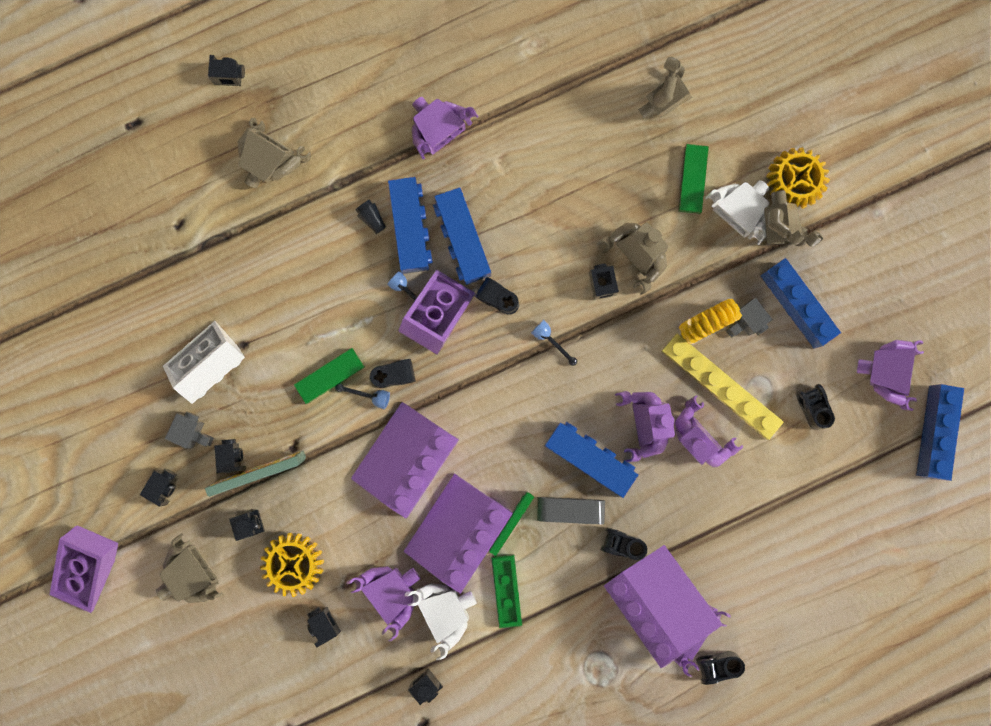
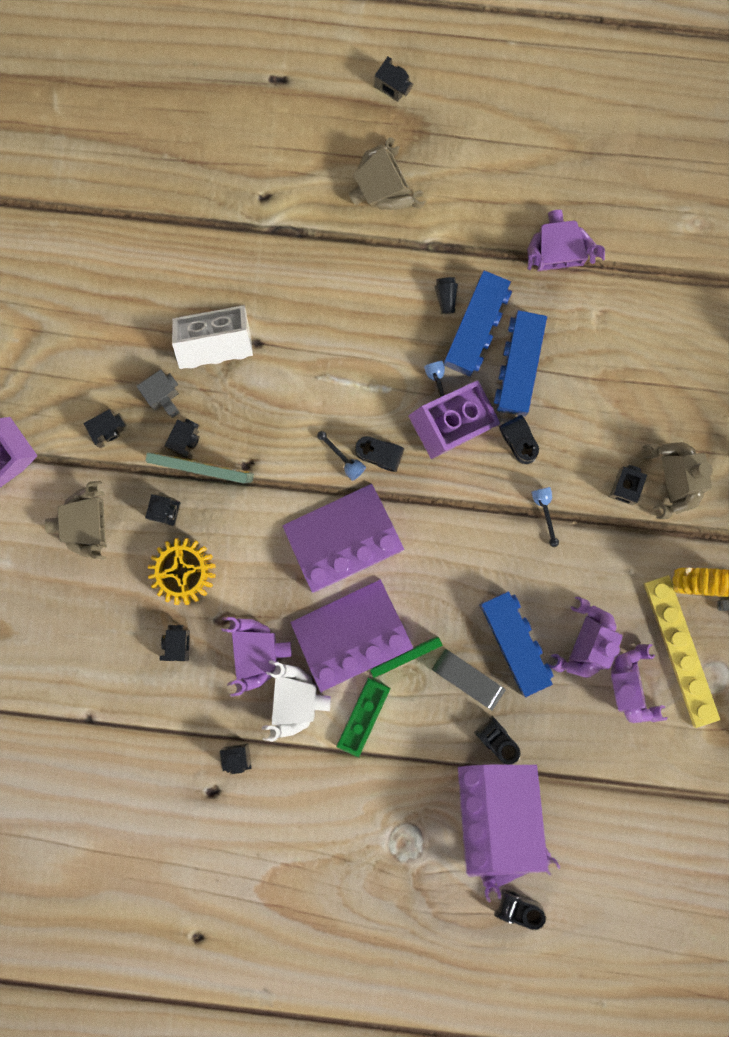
camera: 40 degrees right, 0 degrees up
(329, 376) = (319, 419): green tile -> none

